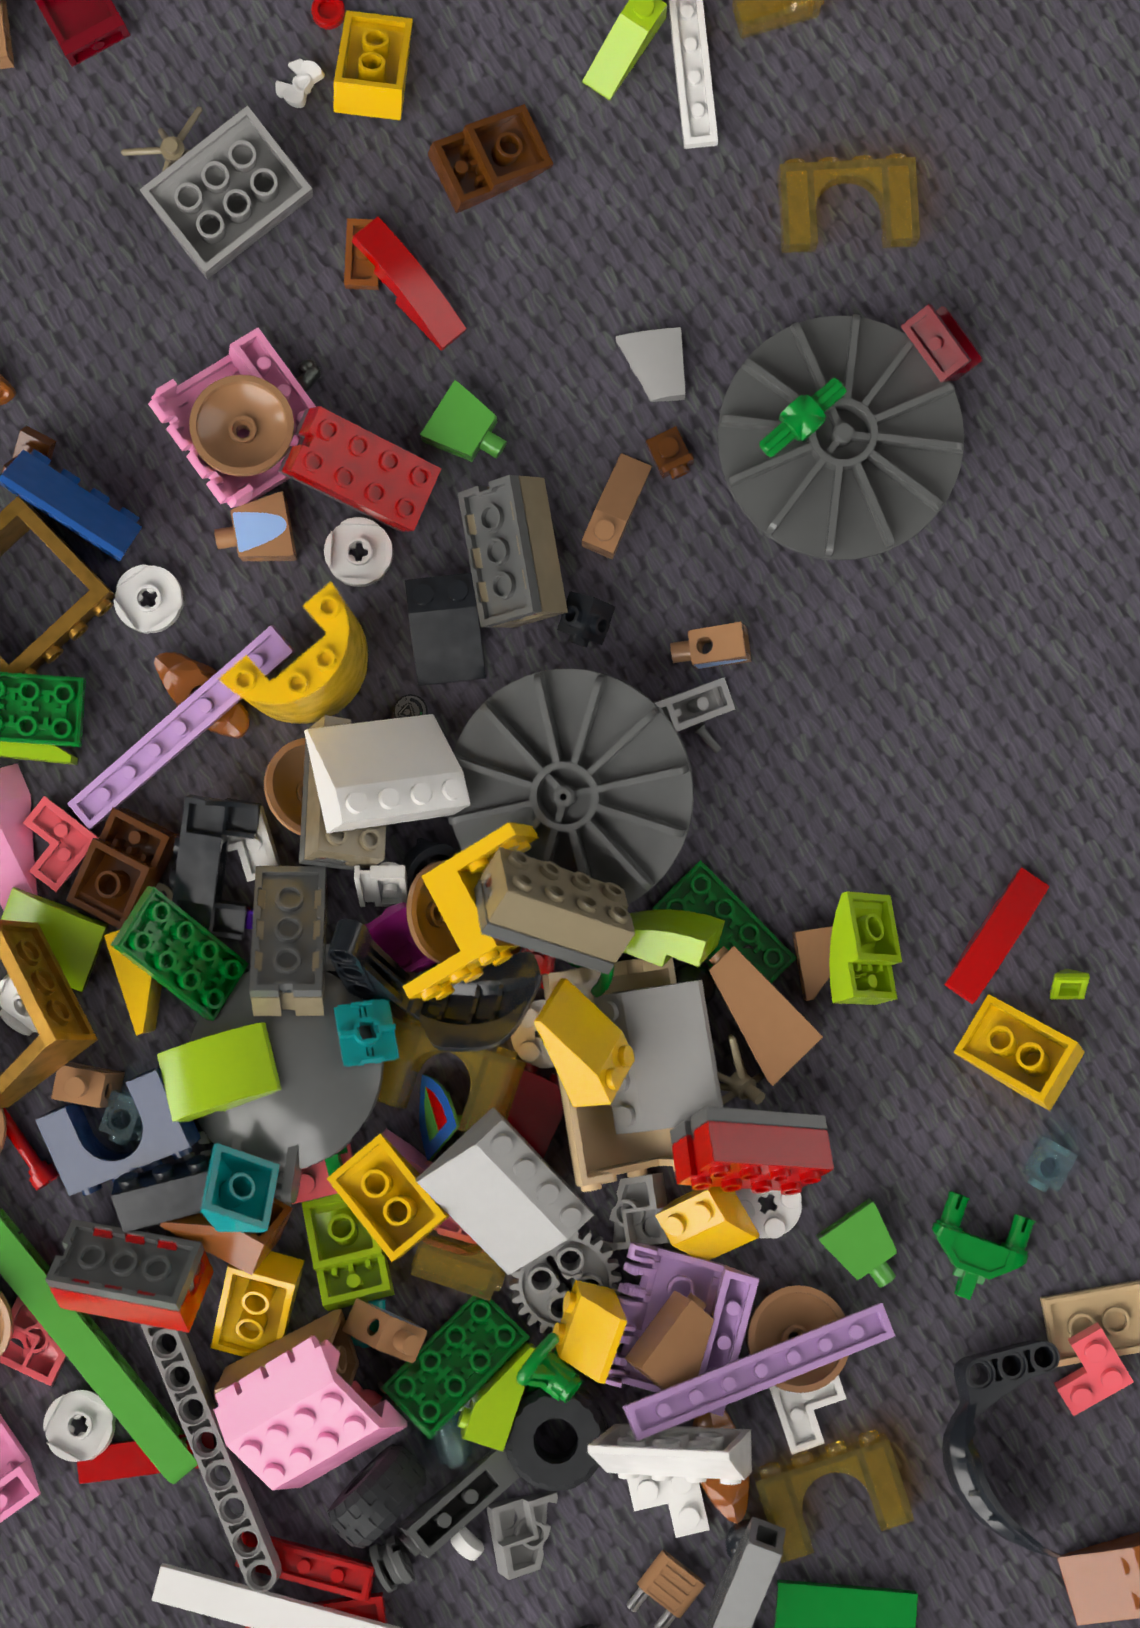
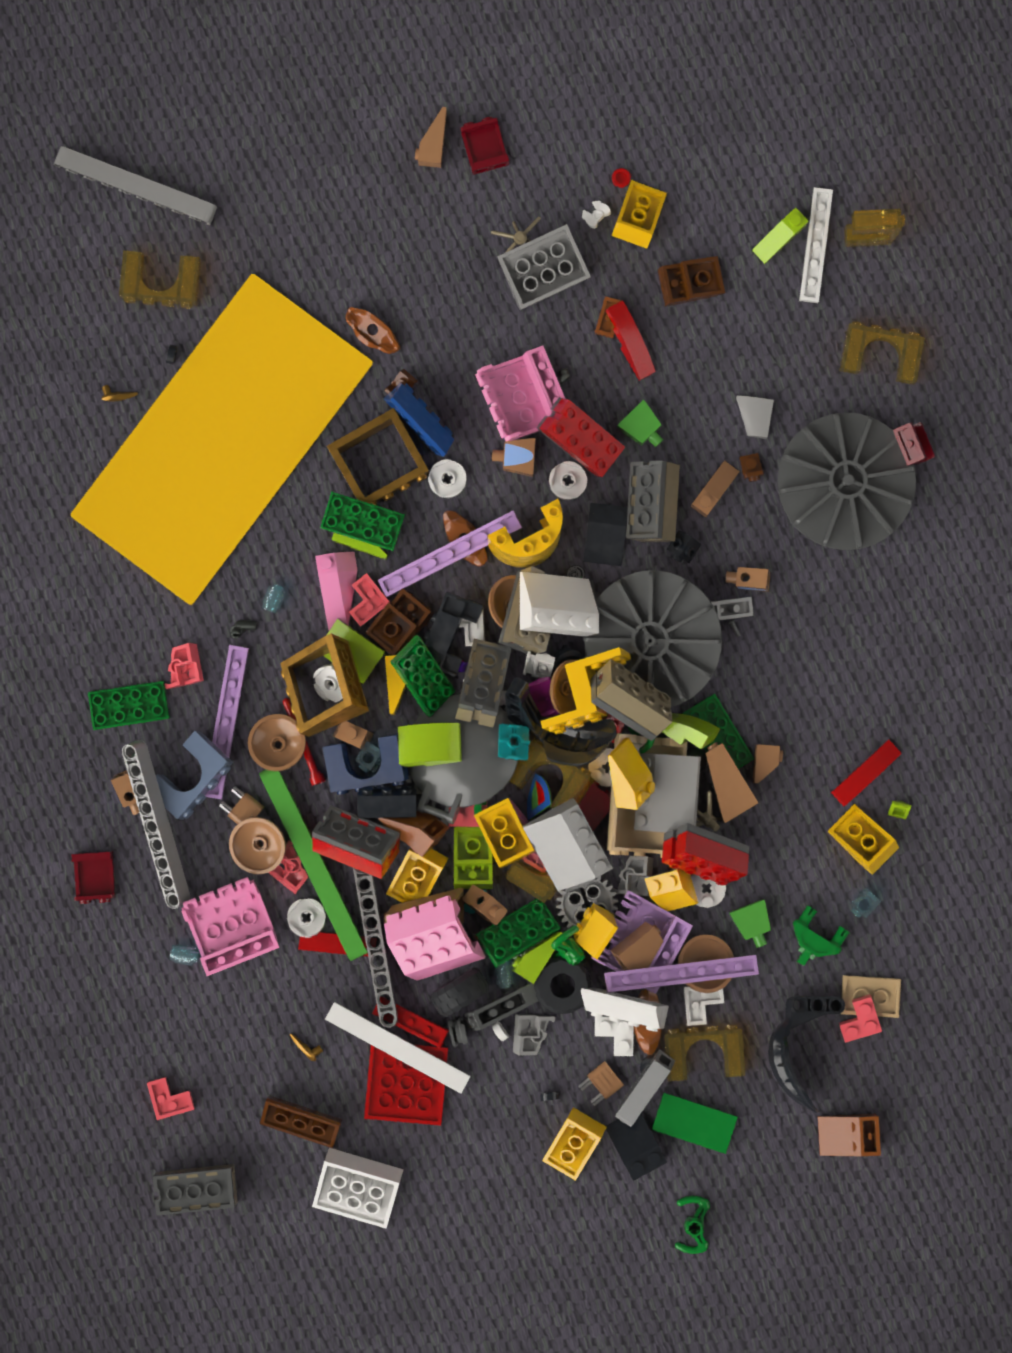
camera: 15 degrees right, 0 degrees up
(235, 405) = (525, 386): medium nougat dish -> none
(239, 1191) = (427, 809): teal slope -> none
(802, 417) = (827, 466): green axle -> none
(863, 950) = (792, 763): lime slope -> none

